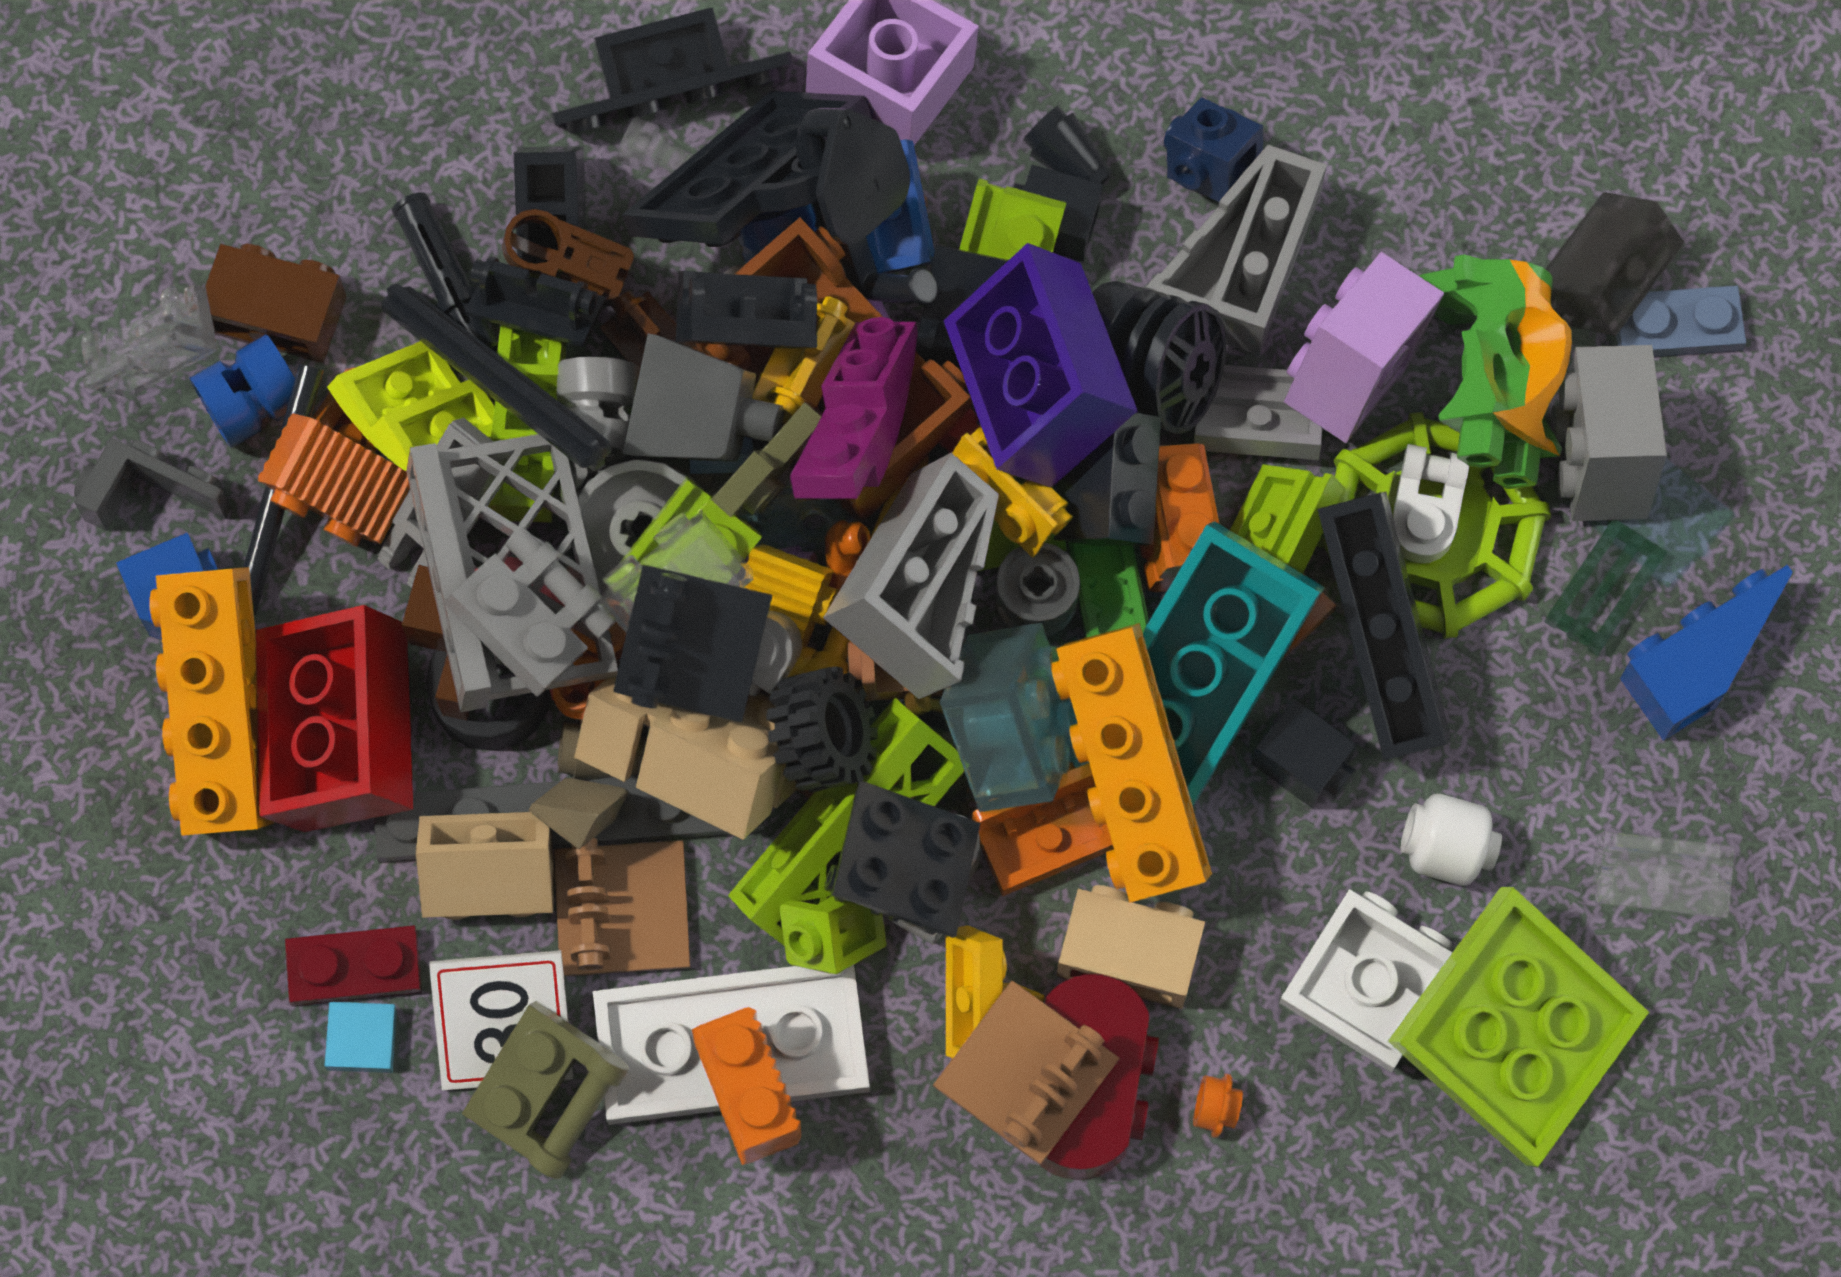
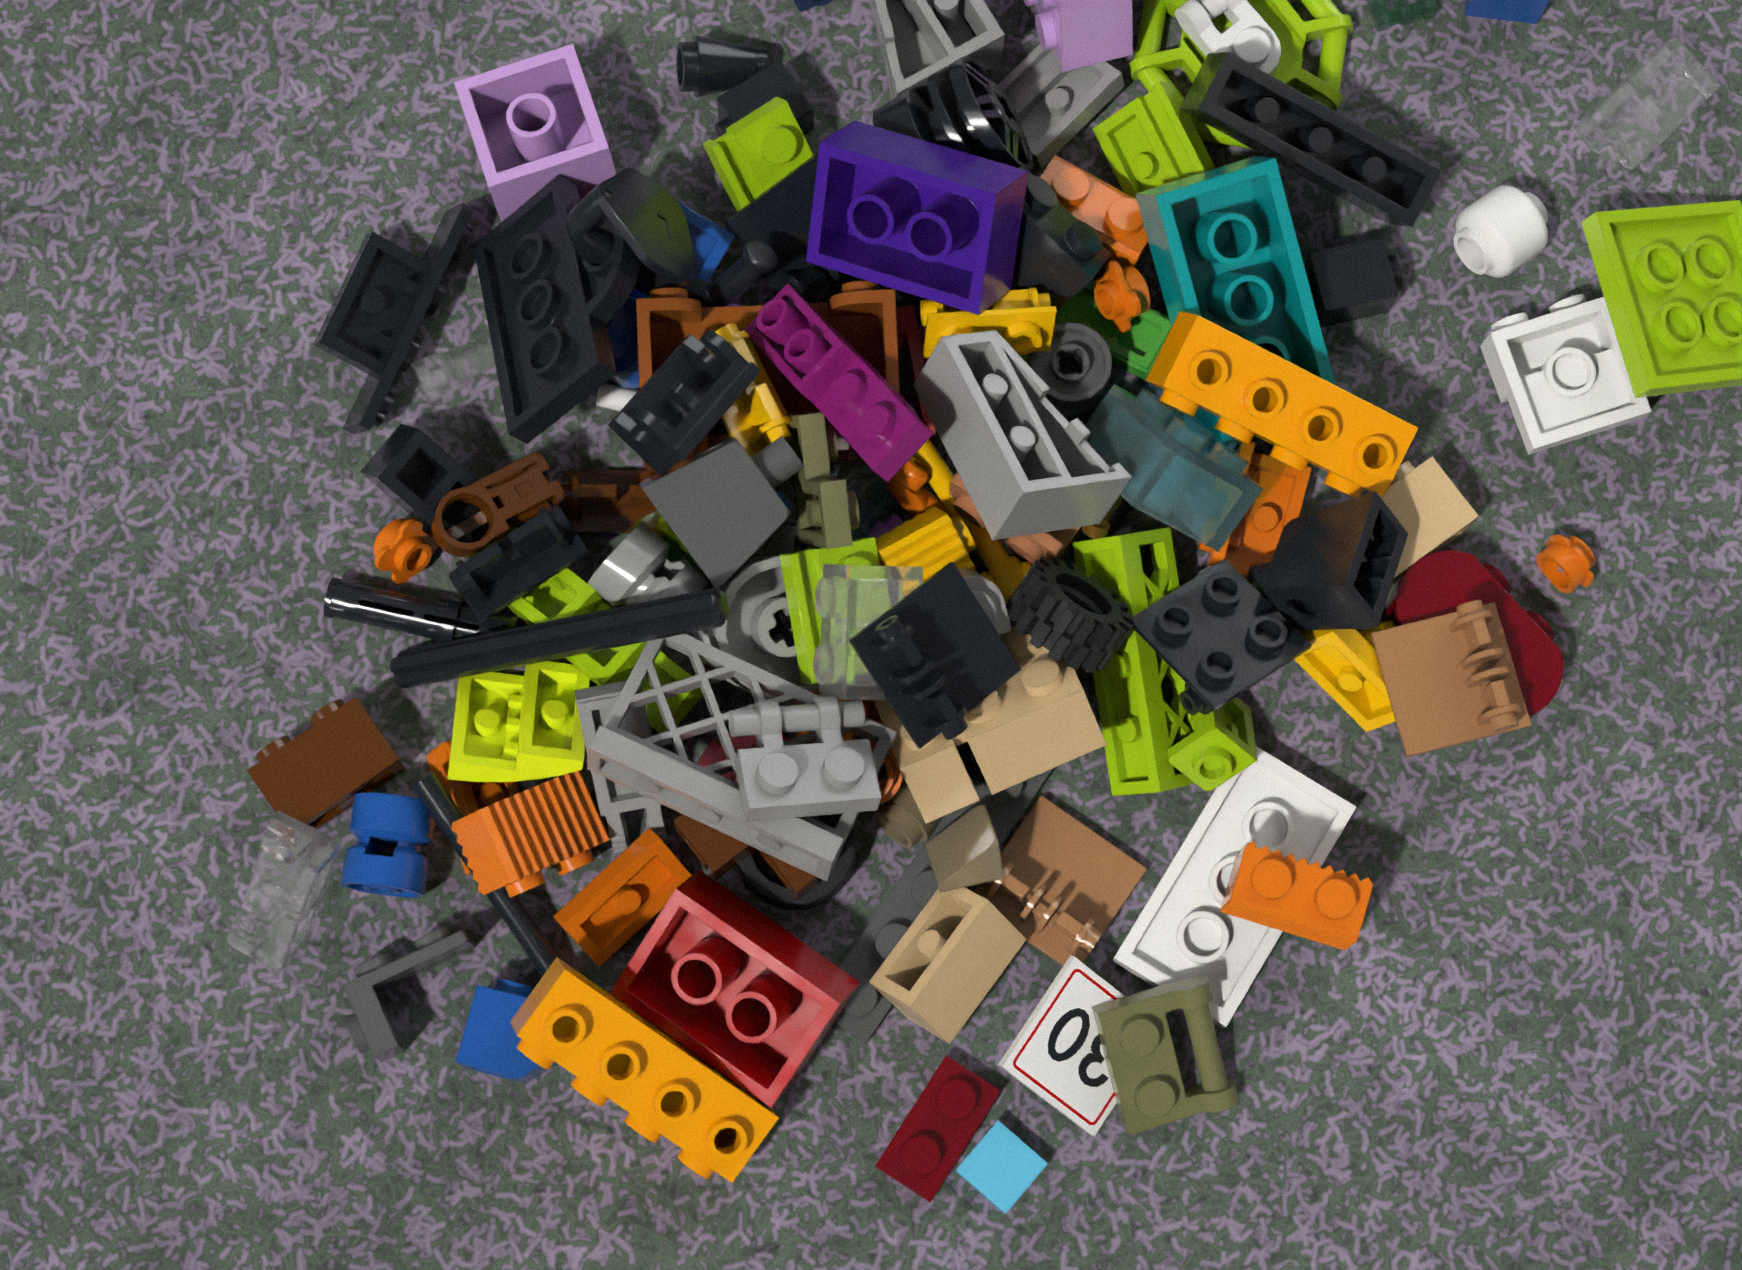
camera: 55 degrees left, 5 degrees up
(329, 583) = (622, 897): none -> orange plate
(484, 223) = (403, 549): none -> orange plate
(1038, 904) = (1334, 565): none -> black torso
(1131, 581) = (1121, 295): none -> orange plate

